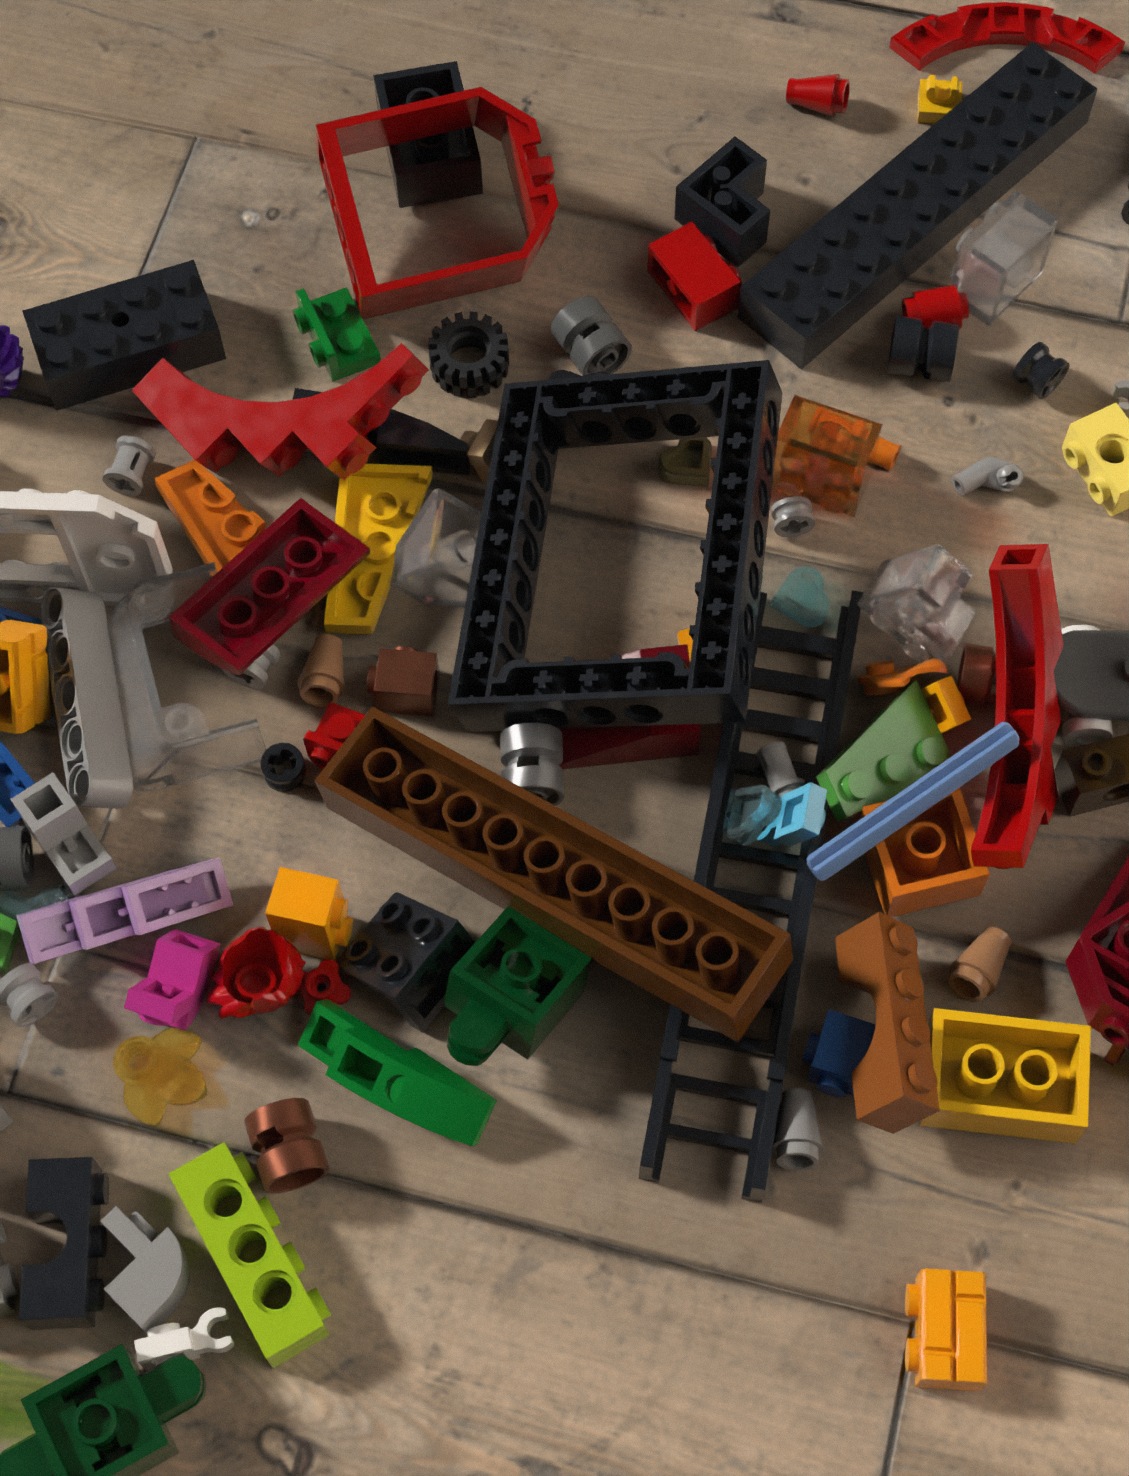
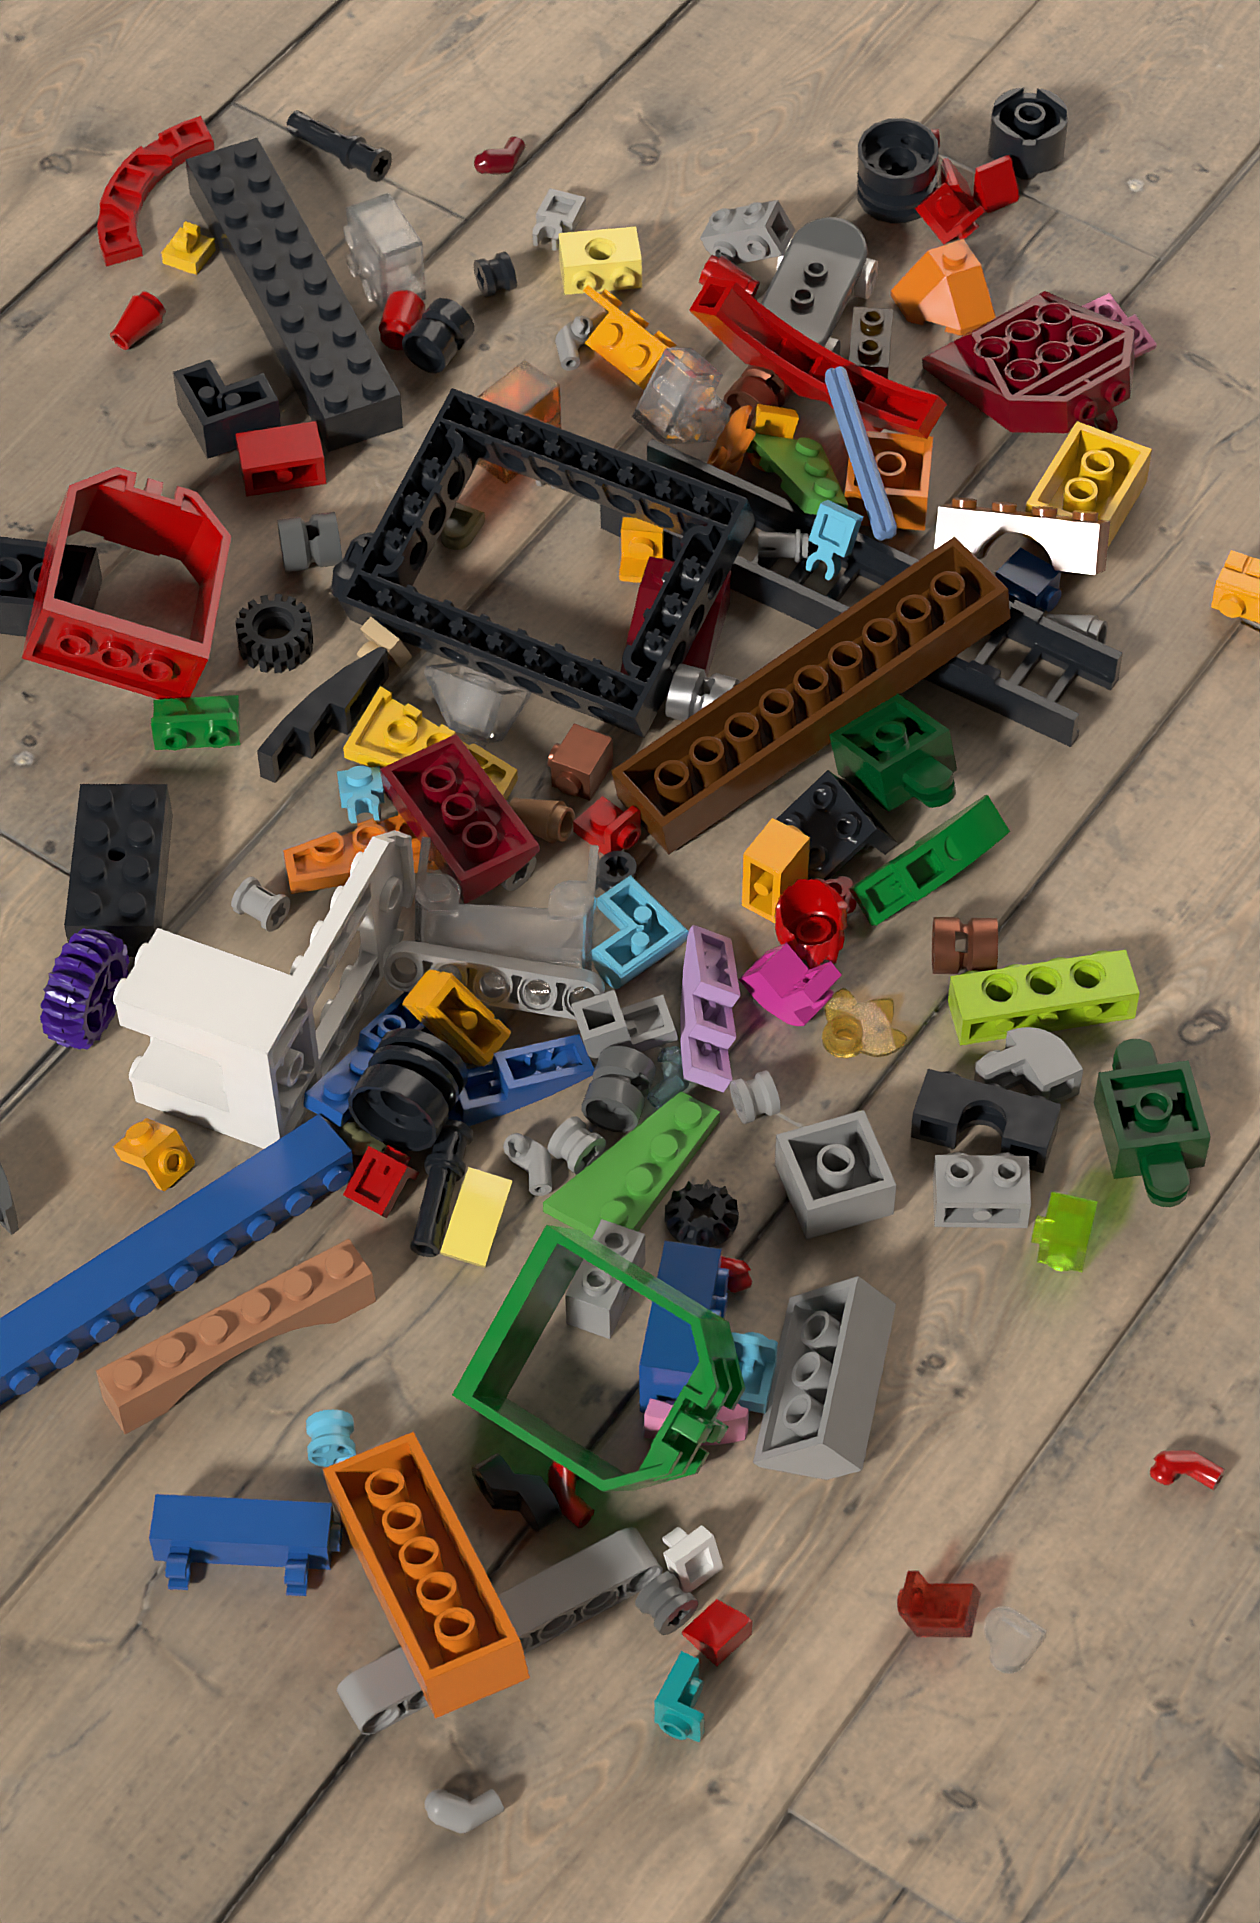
camera: 70 degrees left, 10 degrees down
(171, 1340) = (1101, 1049): white plate -> none
(205, 819) = (644, 935): none -> medium azure brick
(278, 433) = (256, 825): red arch -> none
(290, 489) = (361, 791): none -> medium azure plate
(749, 812) = (810, 567): clear light blue tile -> none
(980, 965) = (989, 483): medium nougat cone -> none
(1014, 519) = (624, 341): none -> light orange bracket

